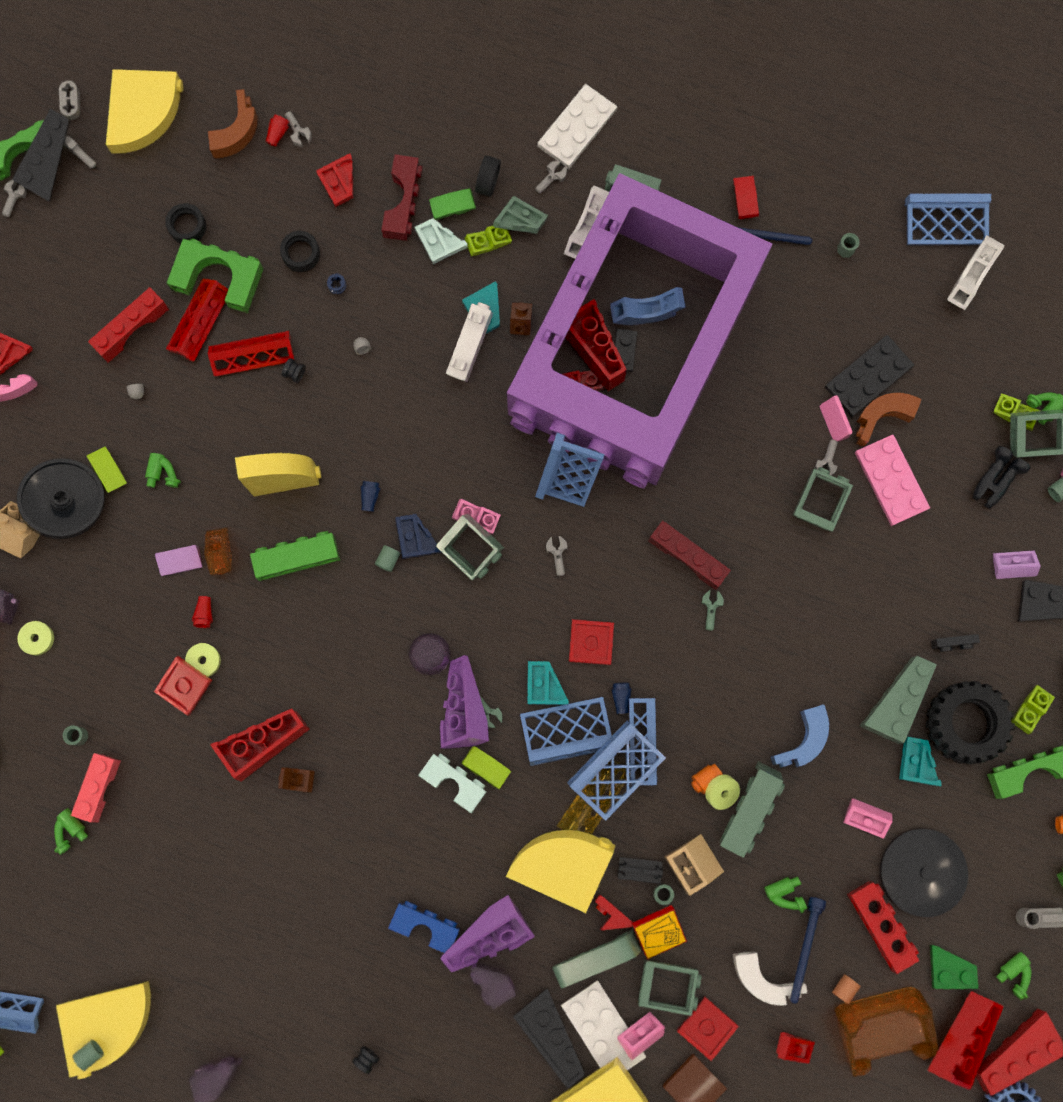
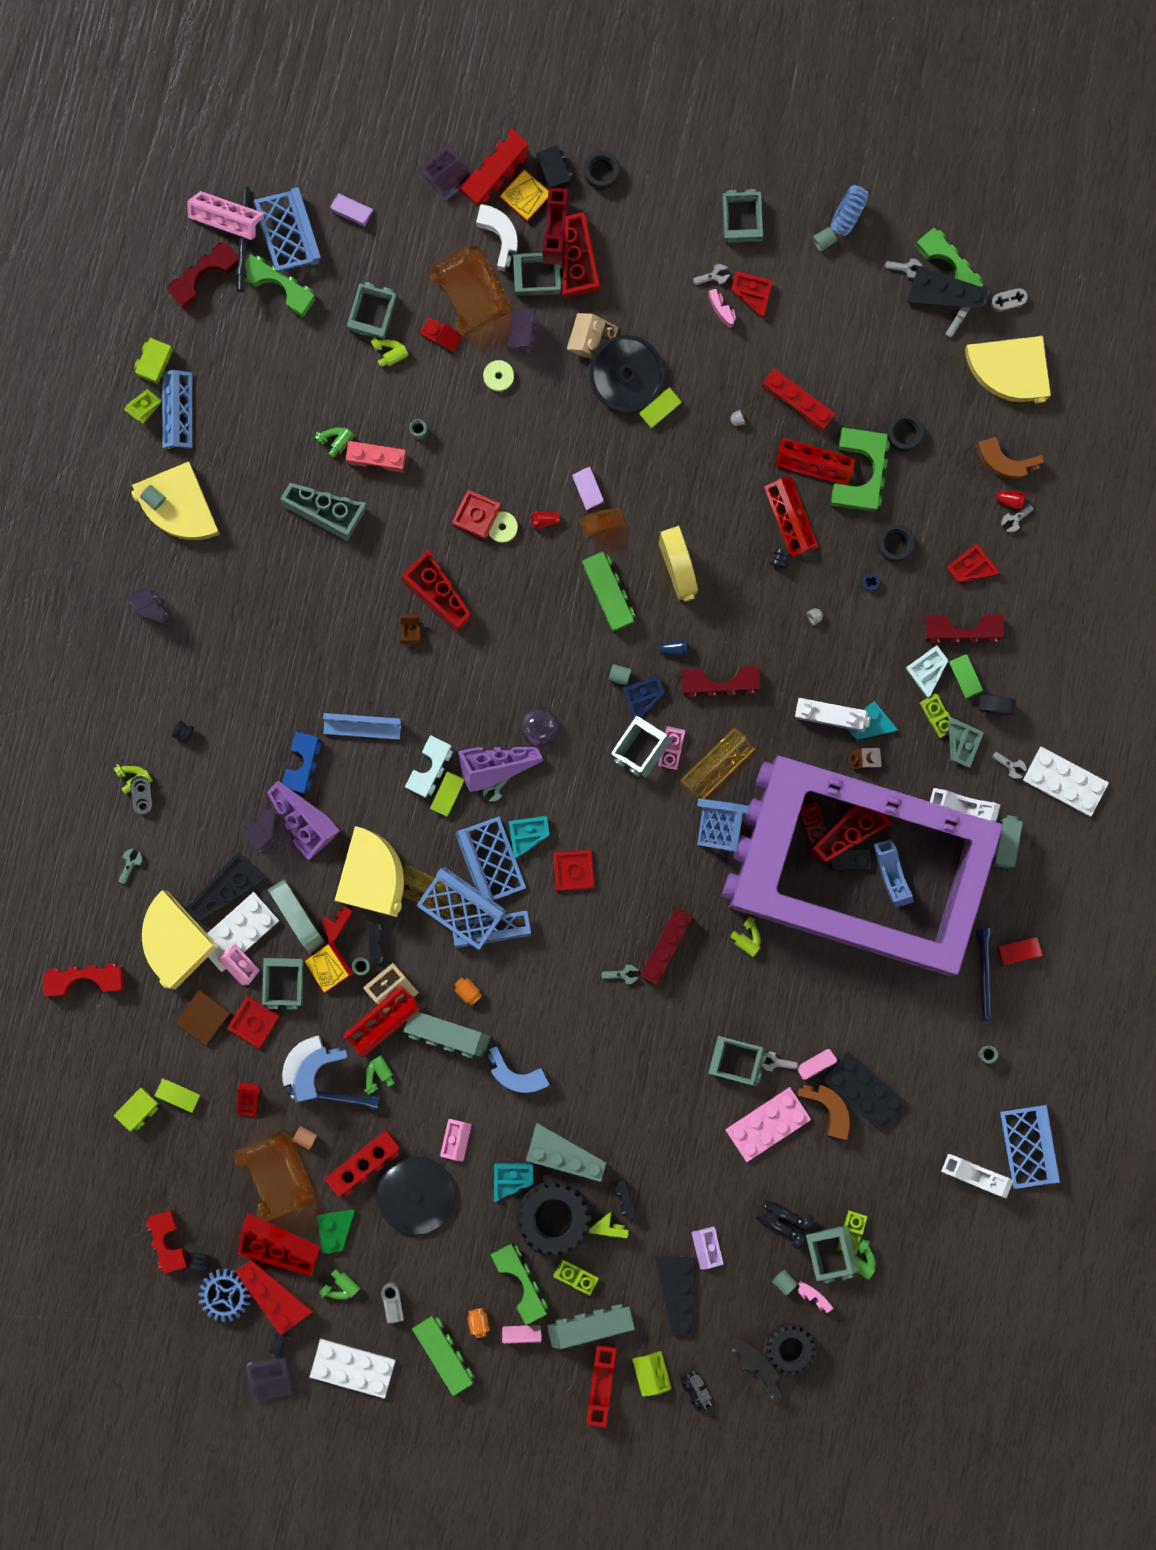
camera: 80 degrees right, 5 degrees up
(147, 850) = (326, 510): none -> sand green wedge
(154, 469) = (671, 450): bright green plant -> none
(395, 851) = (362, 726): none -> medium blue fence
(410, 479) = (695, 683): none -> dark red arch
(498, 472) = (715, 761): none -> clear yellow fence
(557, 554) = (648, 827): light grey bar -> none
(621, 694) = (530, 904): dark blue cone -> none
(694, 475) = (746, 944): none -> lime plant
(728, 797) = (463, 1001): yellowish green piece -> none
(731, 877) = (385, 1023): none -> red fence
(781, 979) = (304, 1076): none -> medium blue arch
(984, 670) = (602, 1227): none -> lime slope

